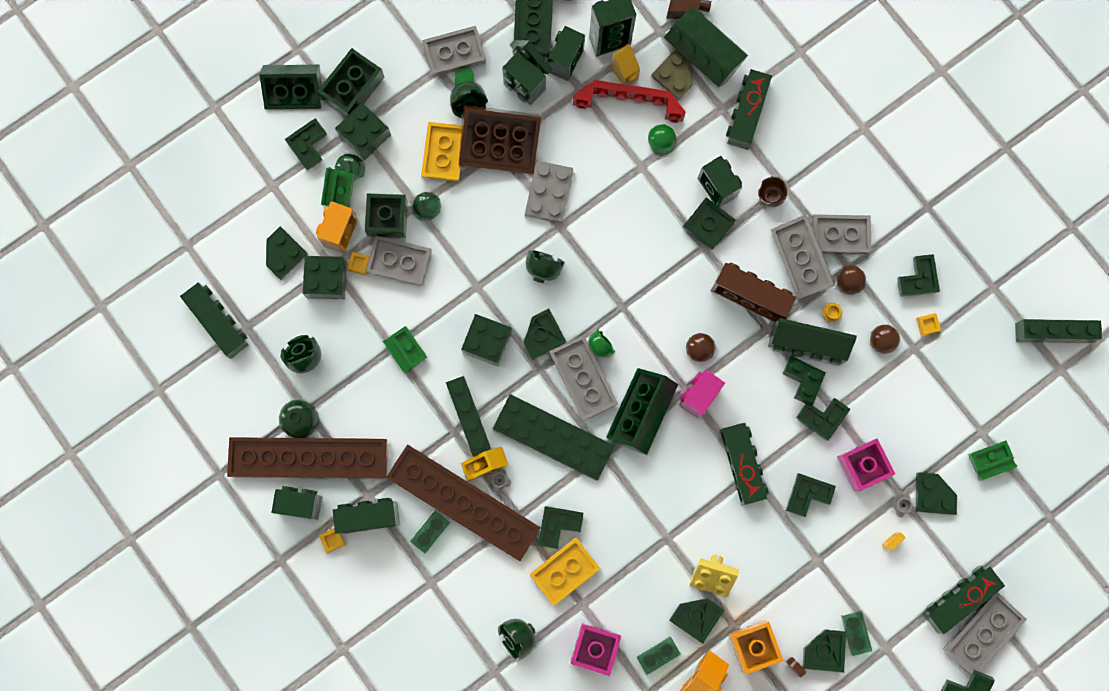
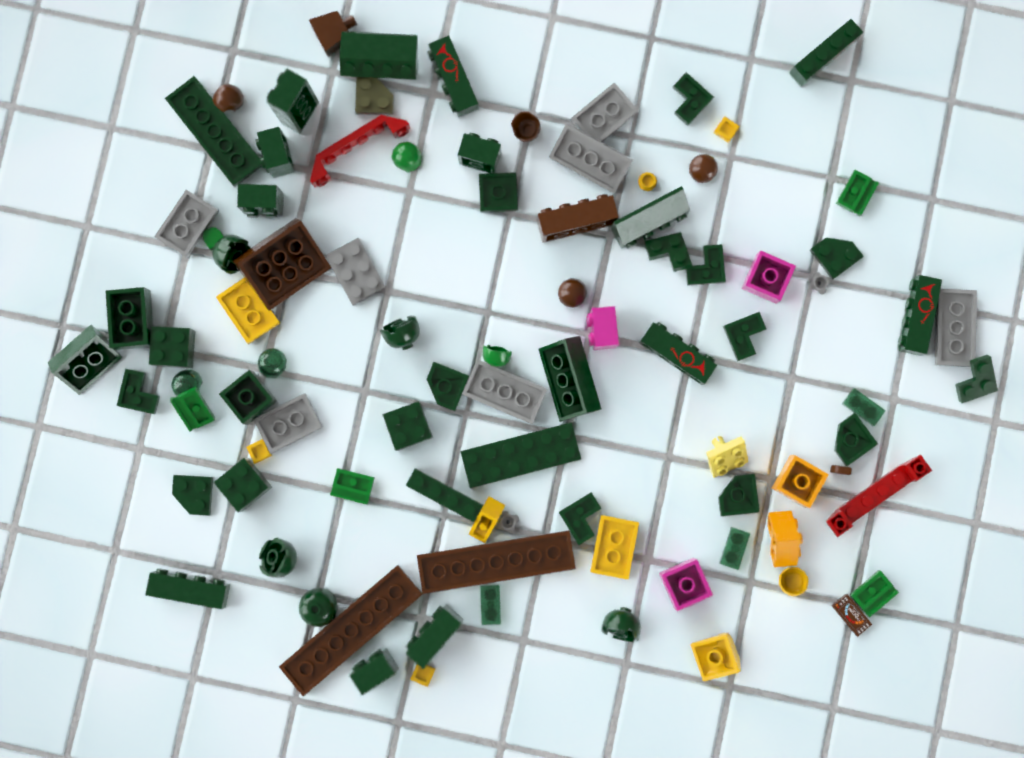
camera: 35 degrees left, 5 degrees up
(336, 227) = (218, 439): light orange brick -> none
(528, 50) = (250, 177): dark green plate -> none
(625, 65) = (330, 122): yellow slope -> none
(851, 279) = (640, 144): reddish brown hair -> none
(893, 541) = (834, 316): yellow tile -> none

